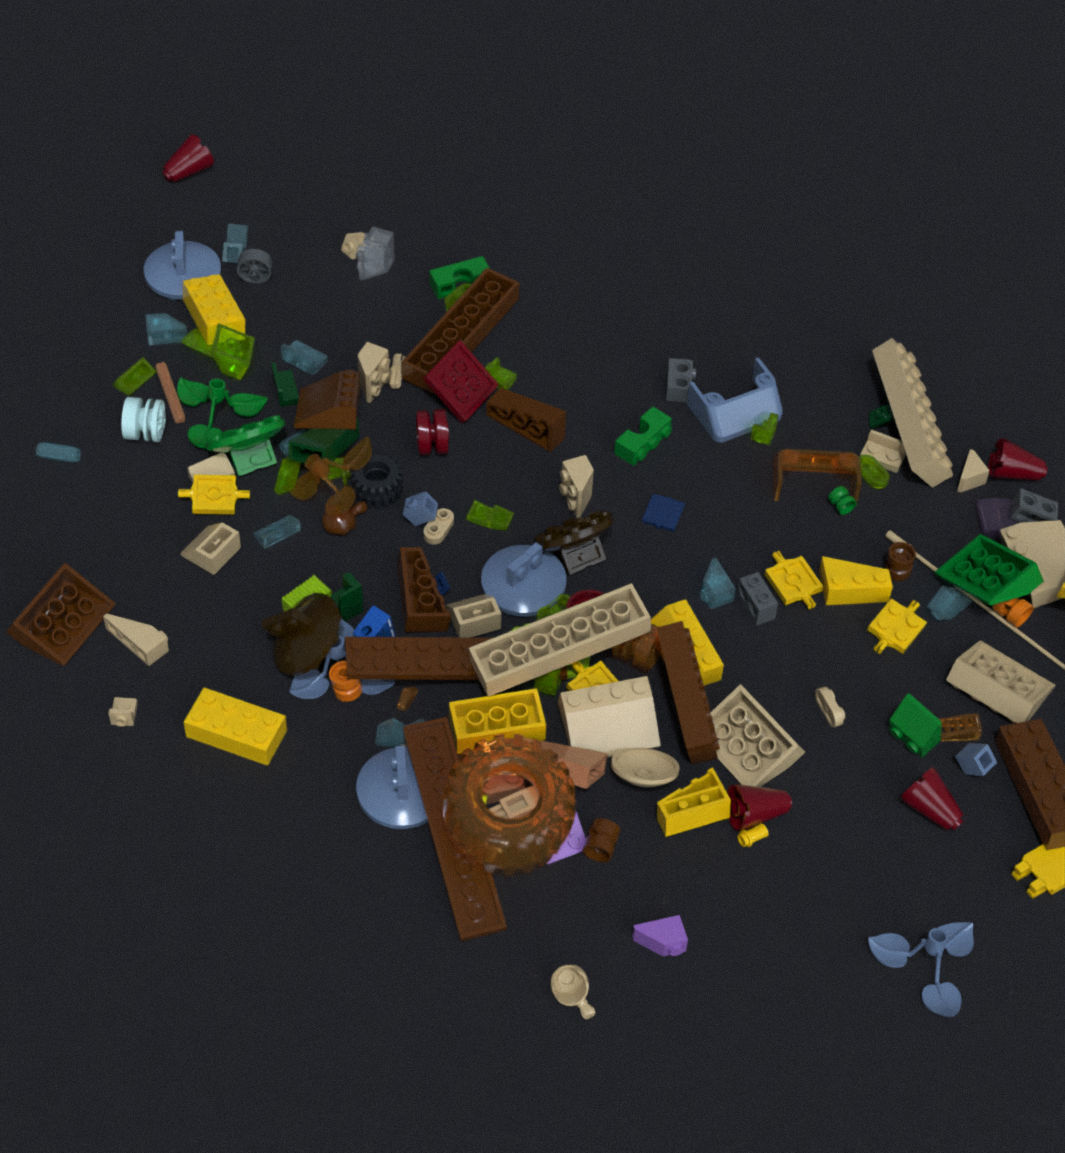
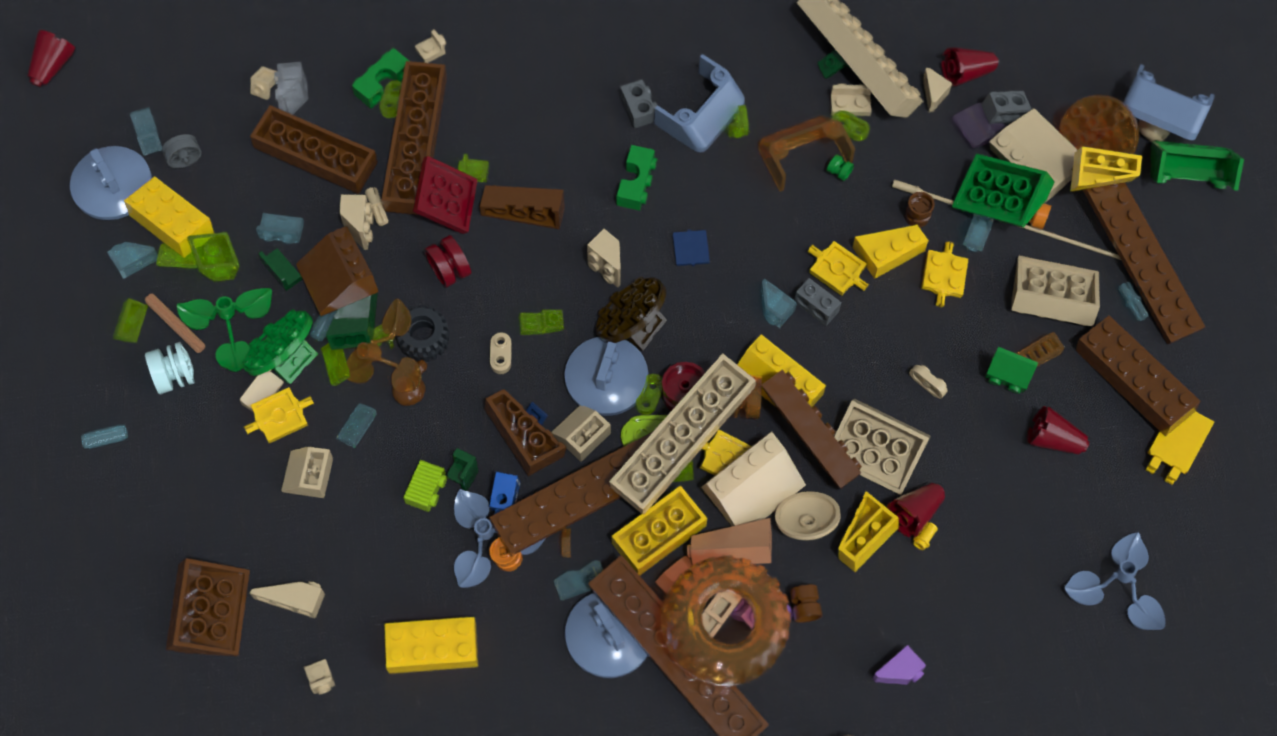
camera: 25 degrees left, 15 degrees up
(304, 633) = (449, 528): dark brown bracket -> none
(368, 306) = (314, 149): none -> reddish brown brick
(420, 508) = (478, 345): sand blue brick -> none
(519, 272) = (432, 47): none -> tan bracket
(976, 759) = (1072, 377): sand blue brick -> none

